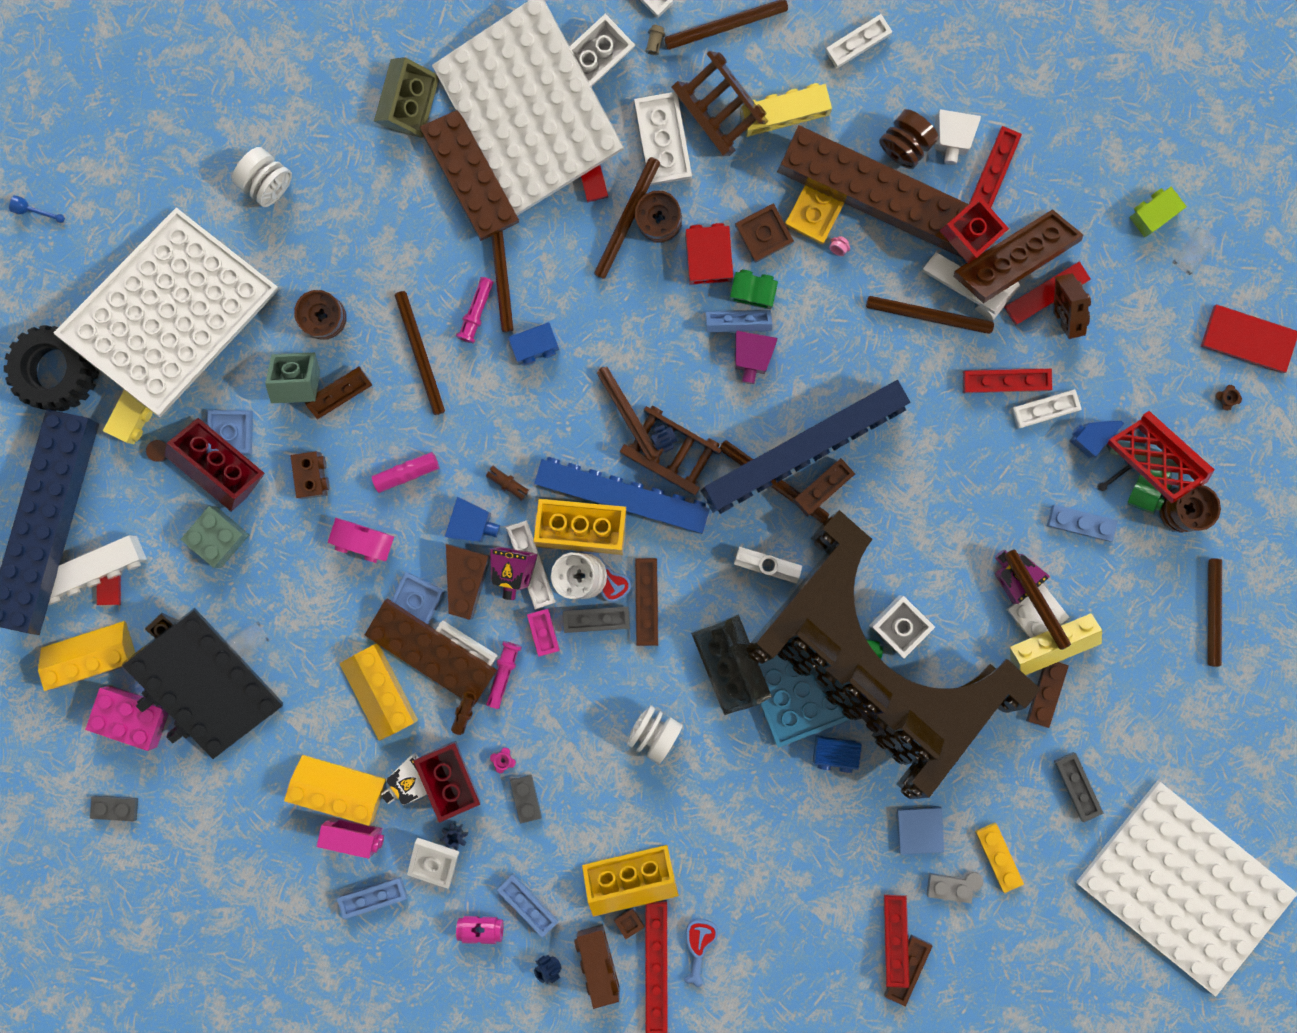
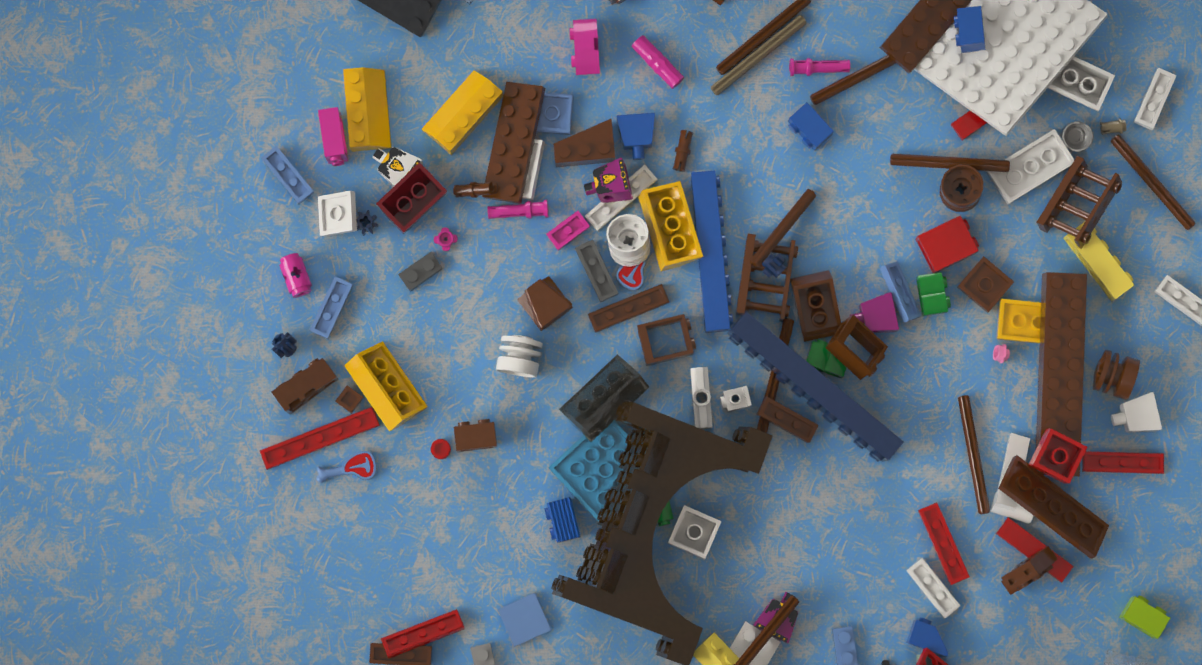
camera: 65 degrees right, 5 degrees down
(439, 367) = (758, 55): none -> dark tan axle
(500, 140) = (971, 30): none -> blue brick
(608, 685) = (544, 303): none -> reddish brown piece
(651, 78) = (1077, 136): none -> light grey hair
(690, 599) = (645, 344): none -> reddish brown window
(715, 848) = (440, 449): none -> red tile
(718, 810) = (475, 436): none -> reddish brown brick
(719, 410) = (816, 305): none -> reddish brown slope
(778, 421) = (824, 361): none -> green brick
(782, 521) = (744, 399): none -> white brick
(785, 368) = (865, 338): none -> reddish brown window

